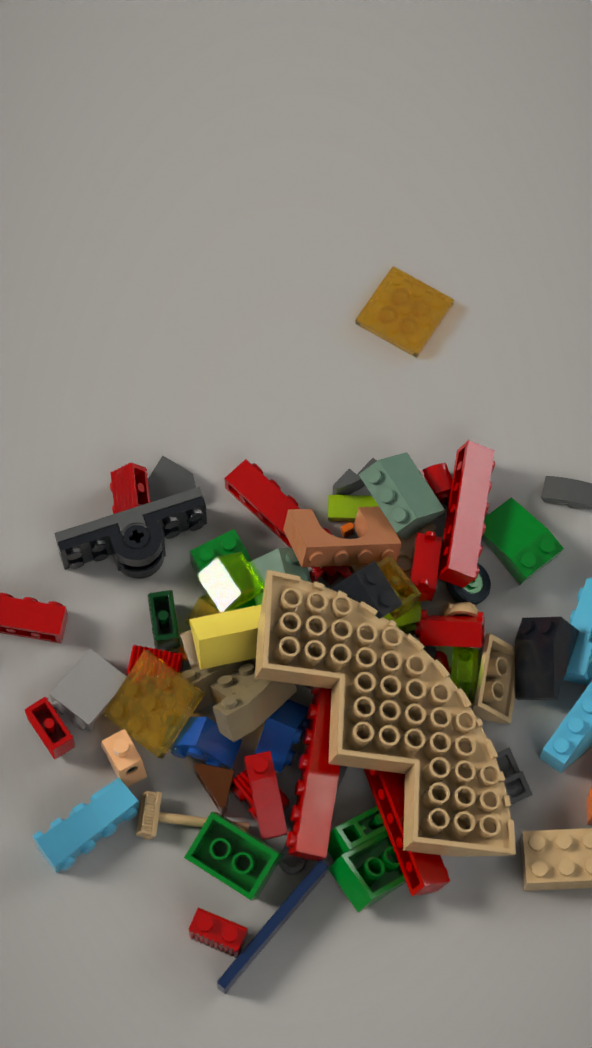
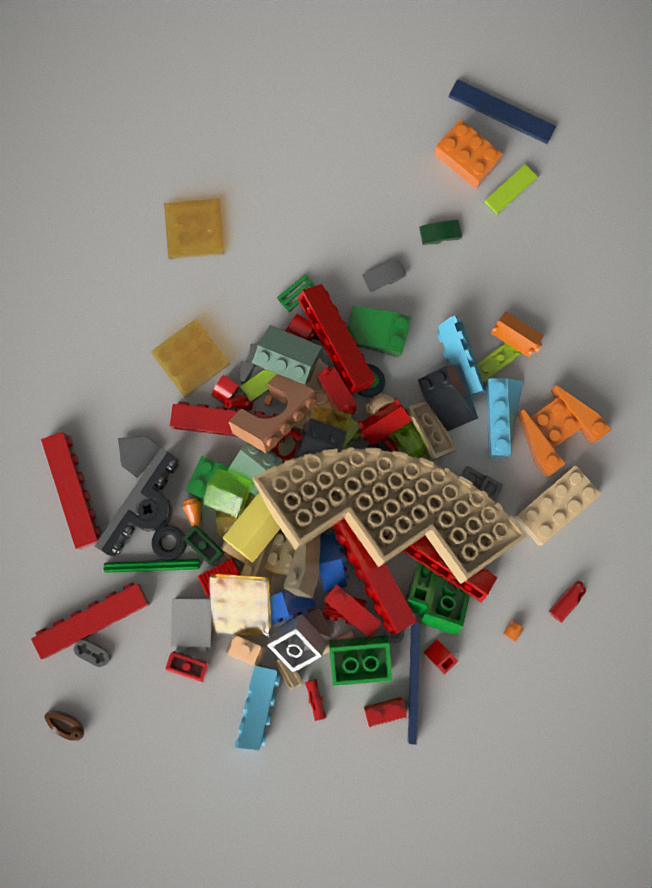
camera: 35 degrees left, 15 degrees up
(75, 470) = (71, 490): none -> red brick
(94, 605) = (158, 565): none -> green axle
(129, 487) = (116, 478): red brick -> none
(129, 609) = (157, 542): none -> black tyre
(154, 866) = (315, 700): none -> red pin
(181, 785) = (297, 643): none -> light grey brick
(182, 579) = (193, 510): none -> orange cone
(299, 431) = (190, 358): none -> clear yellow plate
(310, 487) = (225, 389): none -> red brick
(316, 505) = (239, 401): none -> red arm
(323, 922) = (440, 656): none -> red brick
(424, 955) = (513, 631): none -> orange hose
(452, 442) = (284, 302): none -> green tile
(509, 970) = (567, 602): none -> red piece

